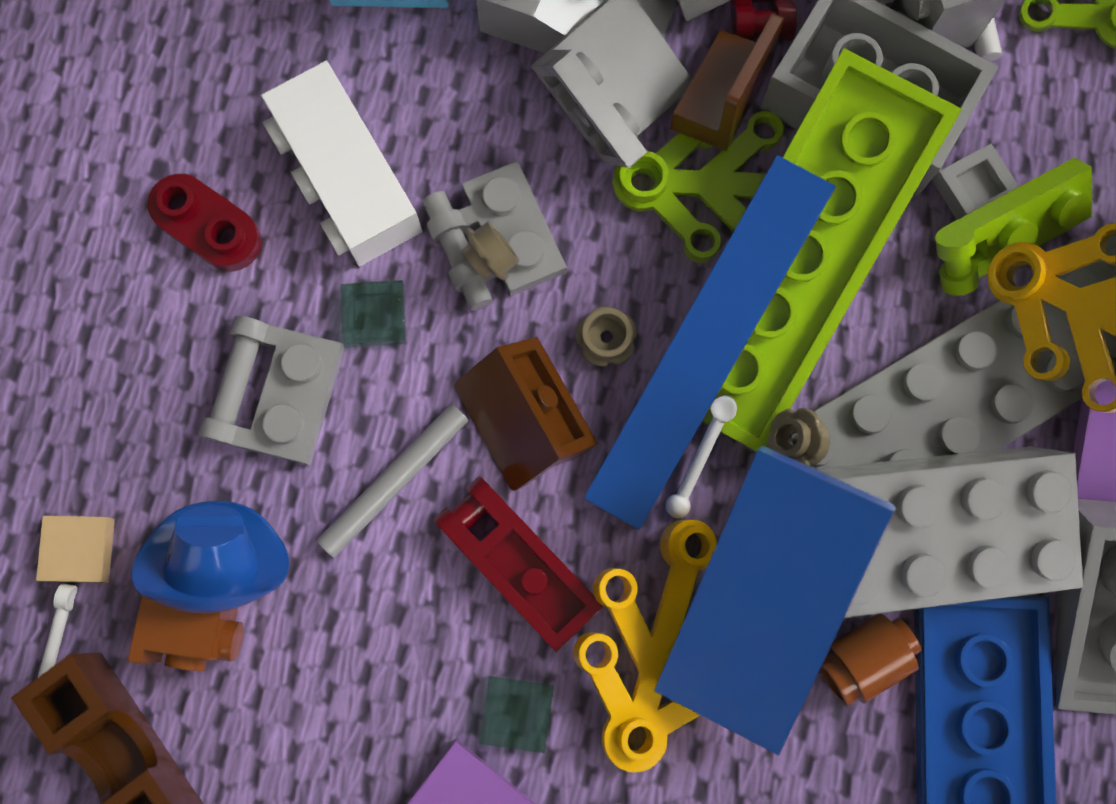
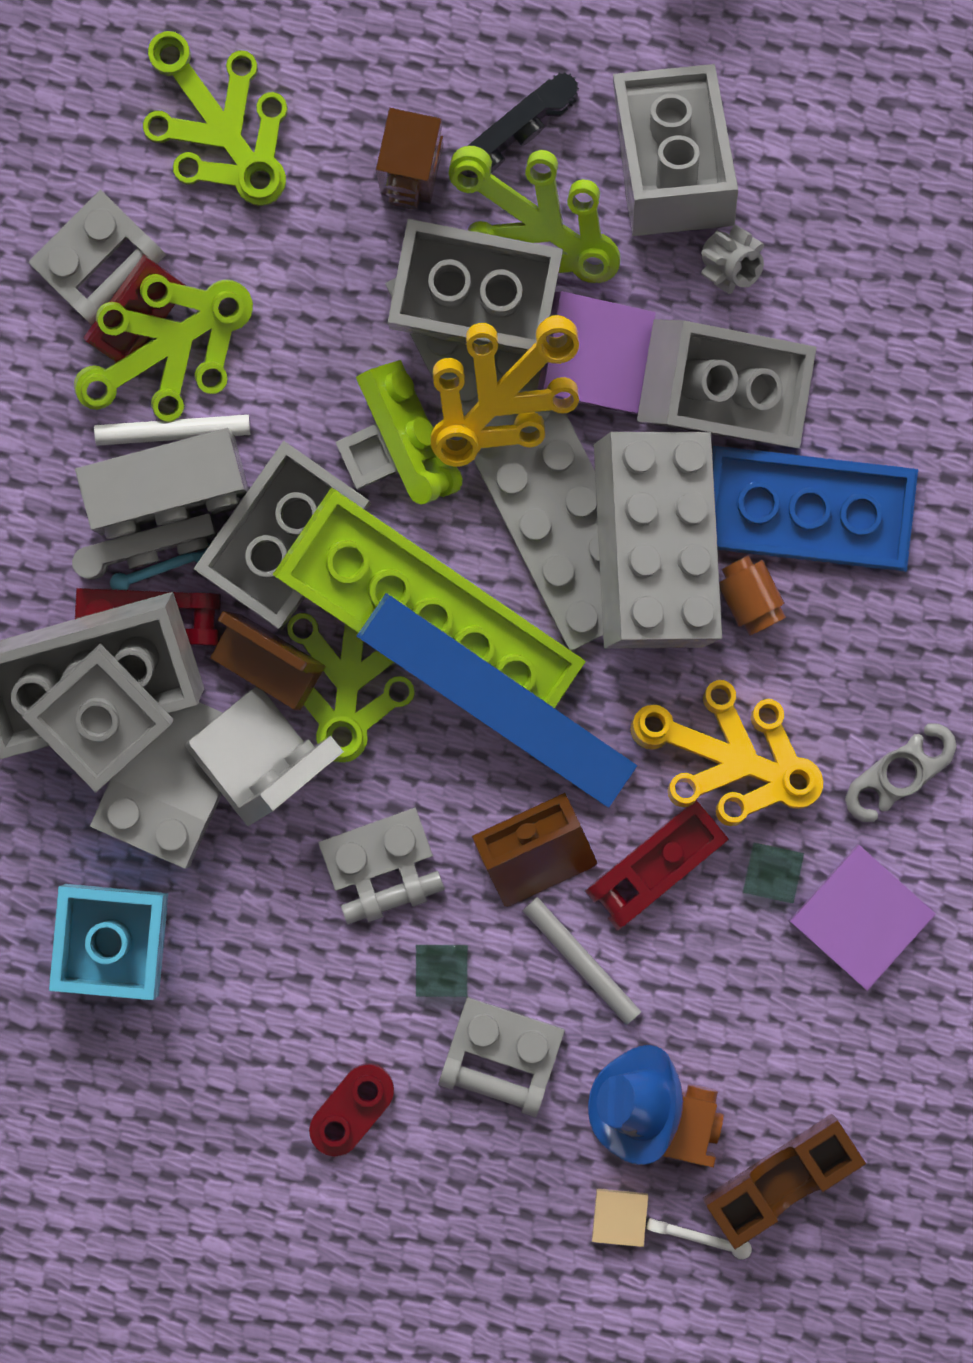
camera: 80 degrees left, 10 degrees up
(340, 165) = (314, 992): white brick -> none
(489, 252) = (406, 870): dark tan plate -> none
(606, 320) = (461, 778): dark tan plate -> none
(723, 410) = (549, 691): white hinge -> none
(773, 598) = (704, 676): blue tile -> none
(812, 436) = (578, 634): dark tan plate -> none

